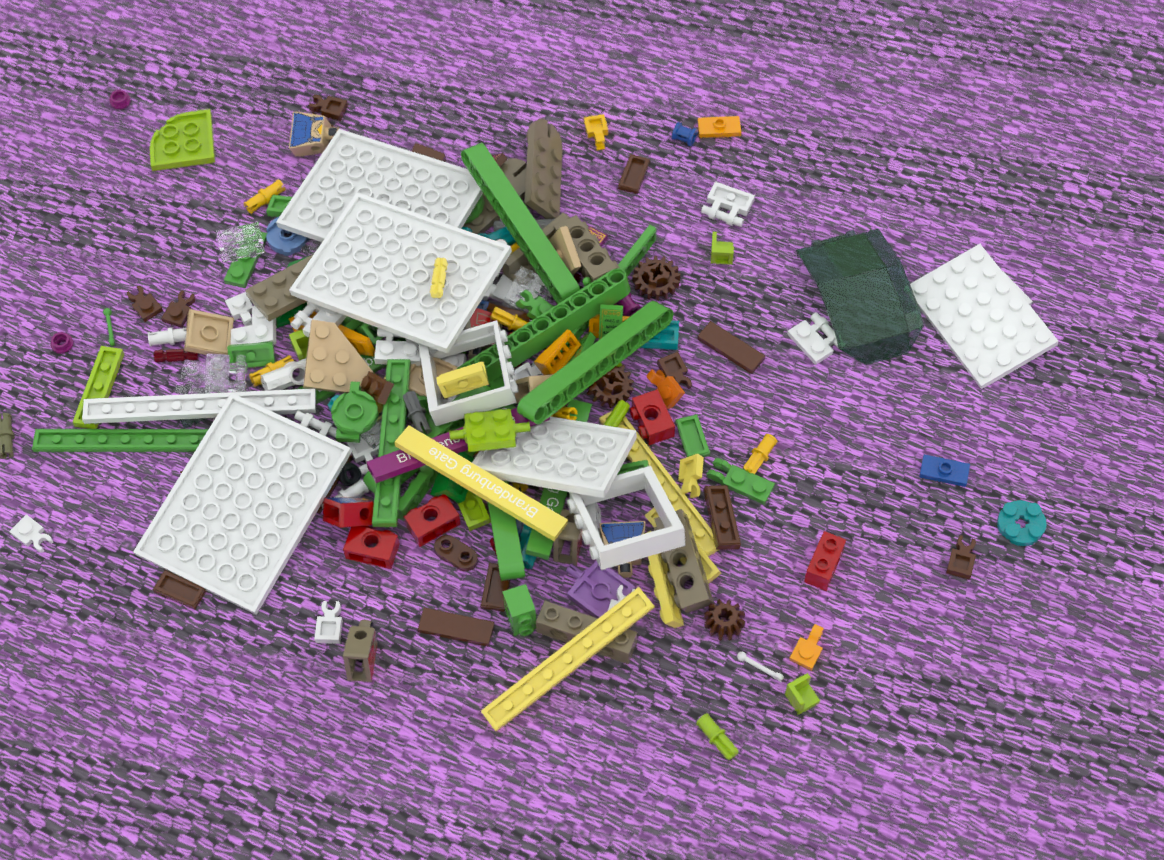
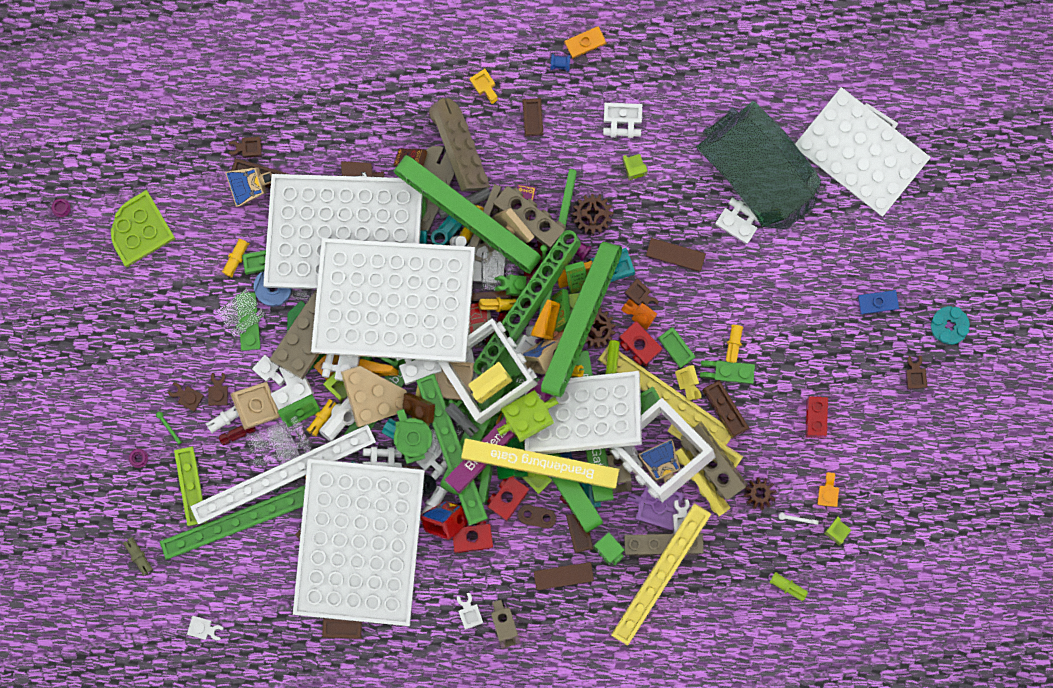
camera: 20 degrees left, 20 degrees up
(438, 277) = (430, 299): light yellow axle -> none

